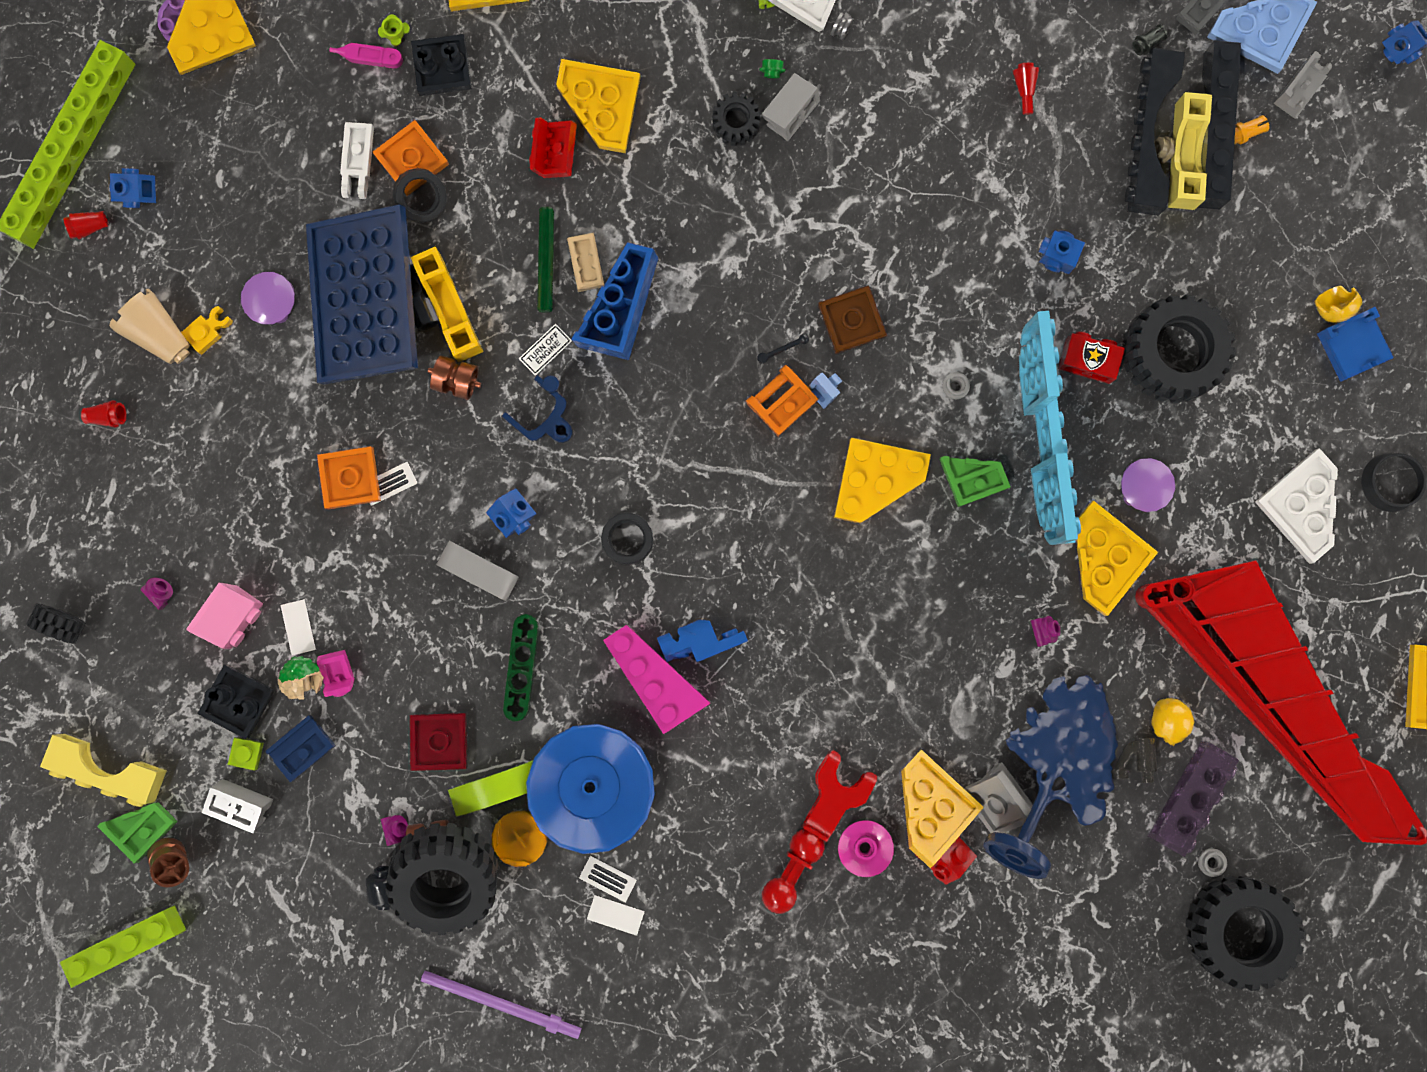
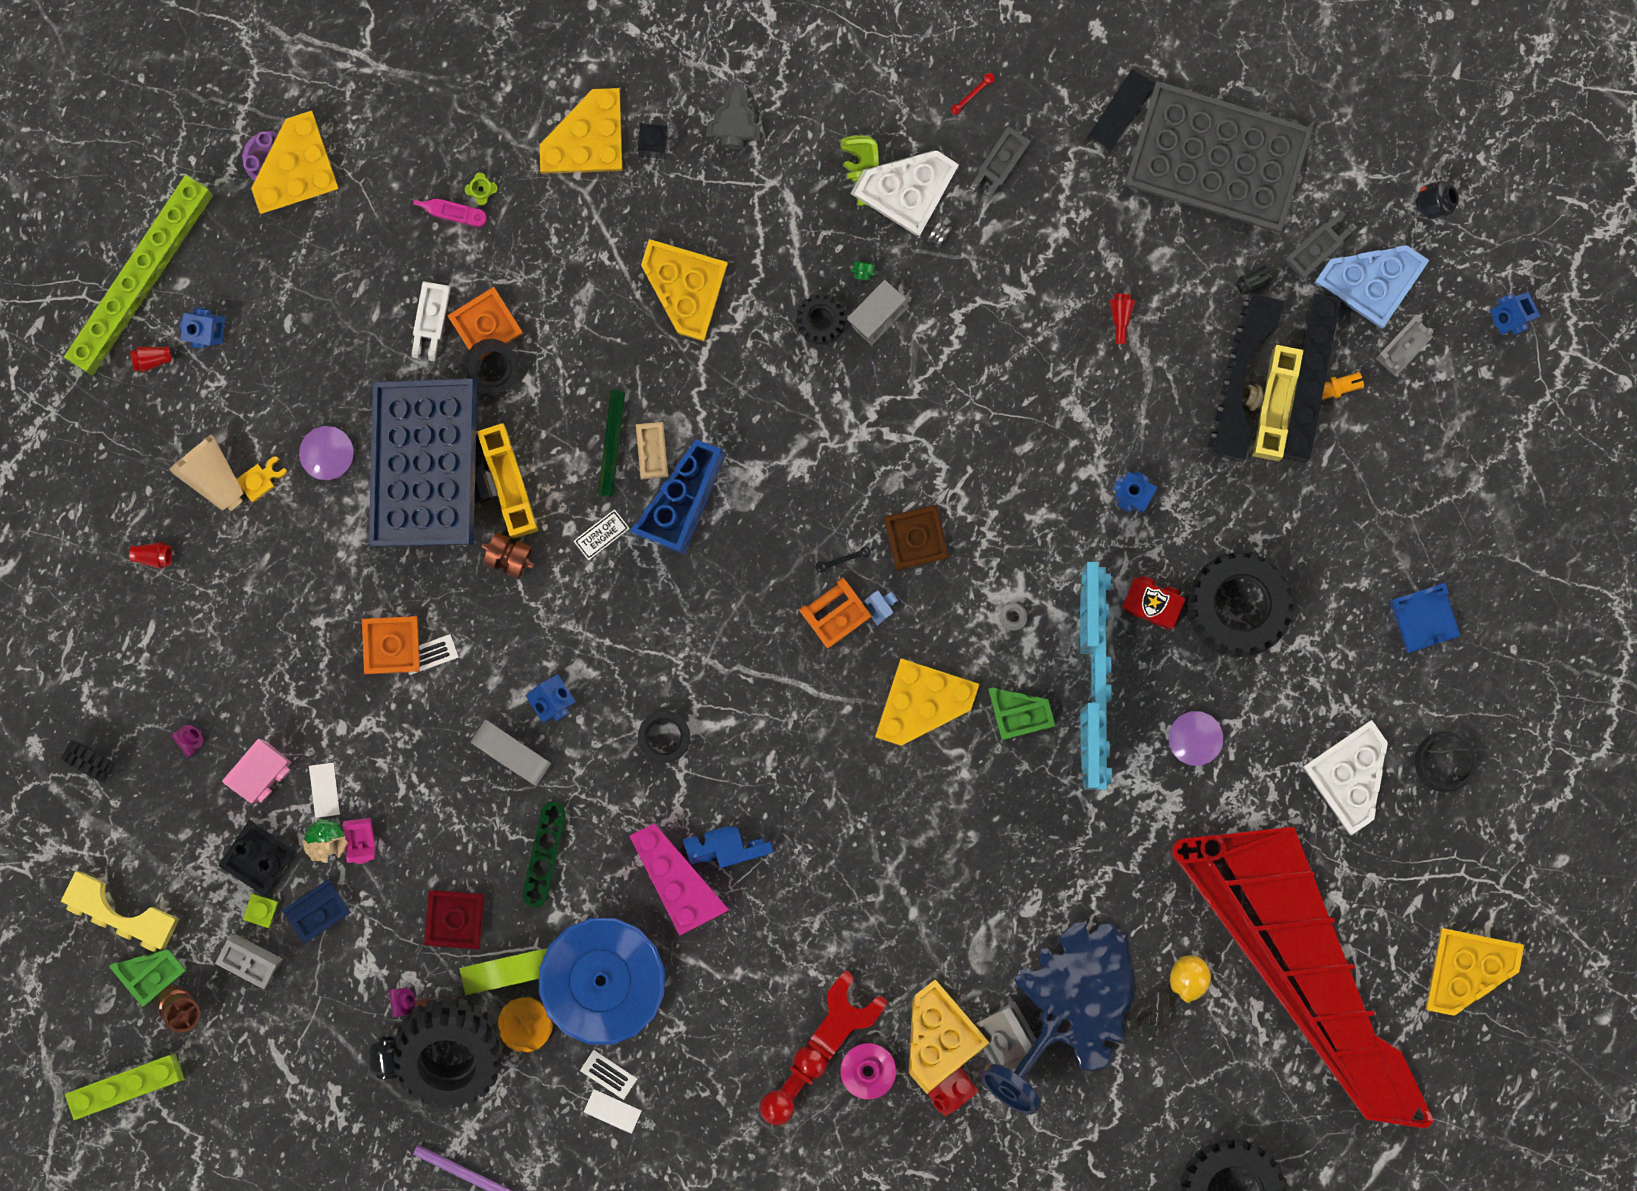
camera: 10 degrees right, 0 degrees up
(441, 65) = (526, 231): black plate -> none
(552, 148) = (631, 330): red bracket -> none
(553, 422) = (603, 609): dark blue piece -> none
(1045, 630) = (1074, 874): magenta plate -> none
(1108, 558) = (1146, 807): yellow plate -> none
(1179, 803) = (1169, 1086): clear purple brick -> none
(1220, 862) = (1222, 1123): light grey plate -> none
(1338, 304) = (1410, 575): yellow hair -> none

